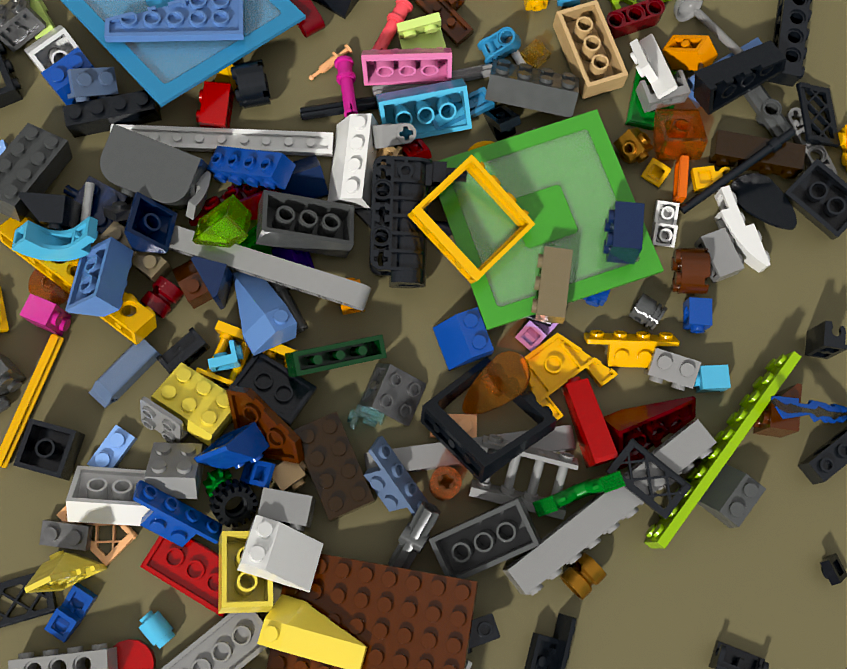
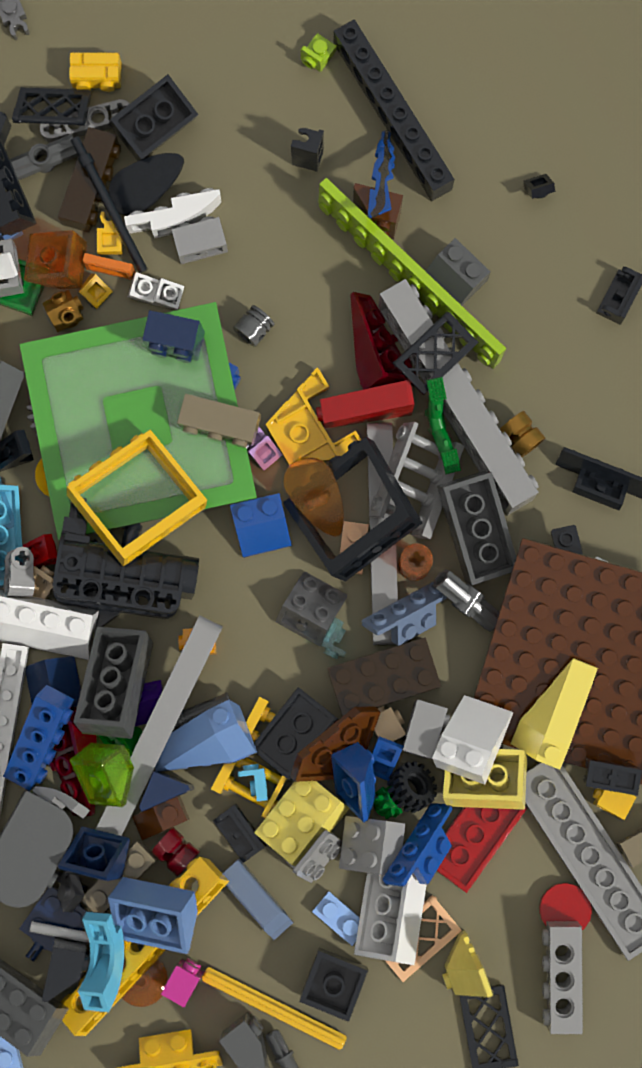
camera: 75 degrees left, 5 degrees up
(66, 534) = (425, 971): flat silver plate -> none
(71, 612) = (506, 969): blue slope -> none
(156, 629) = (532, 878): medium azure brick -> none
(335, 355) = (267, 663): dark green brick -> none
(630, 349) = (290, 350): yellow bracket -> none
(673, 368) = (319, 309): light grey bracket -> none
(691, 270) = (215, 272): reddish brown brick -> none
(697, 314) = (262, 274): blue brick -> none
(712, 379) = (333, 272): medium azure brick -> none

